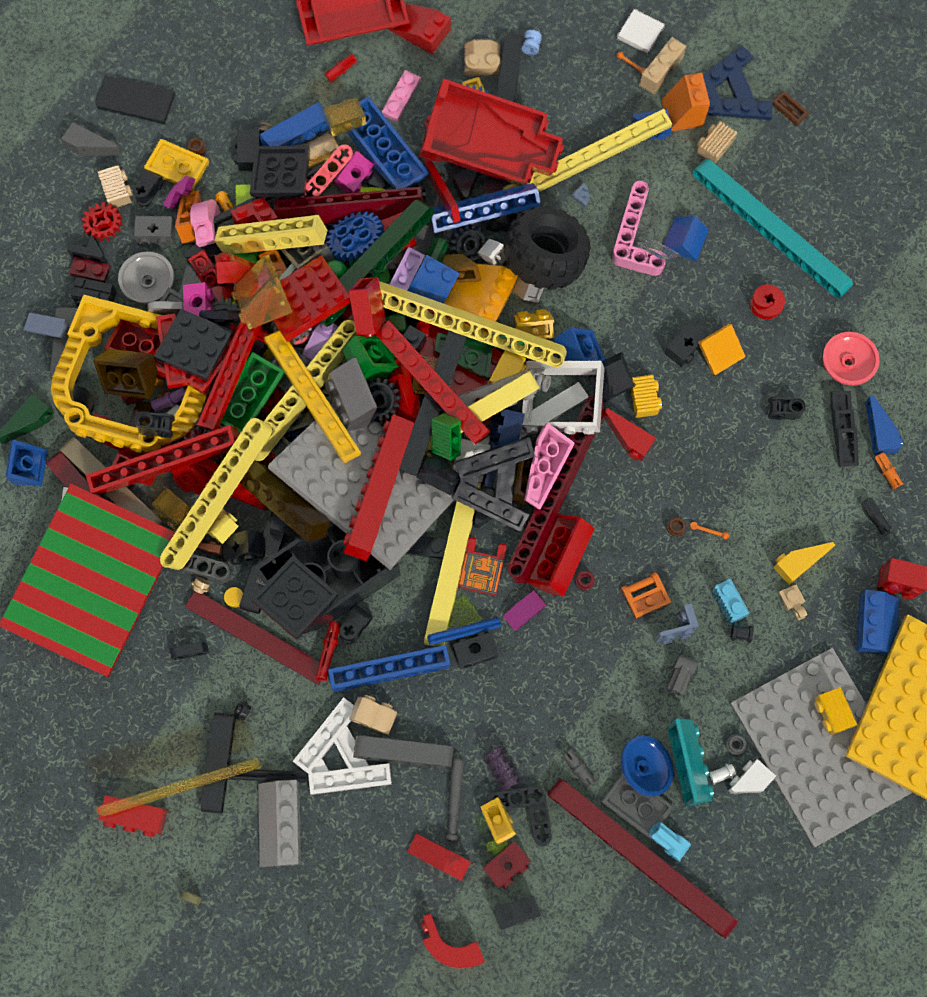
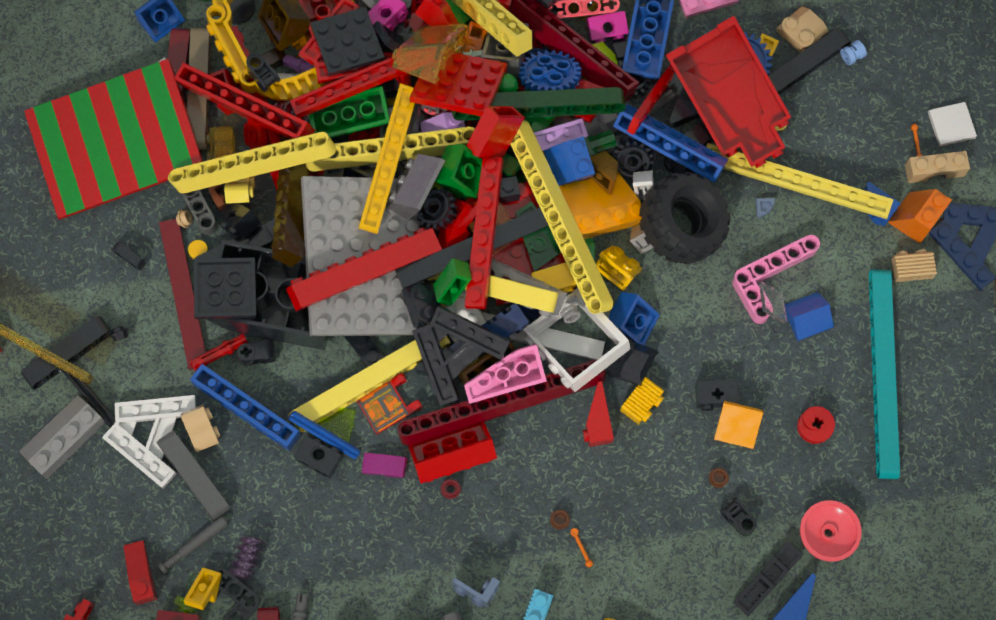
camera: 45 degrees right, 0 degrees up
(648, 601) = (478, 550): orange plate -> none
(744, 397) = (718, 477): none -> reddish brown plate

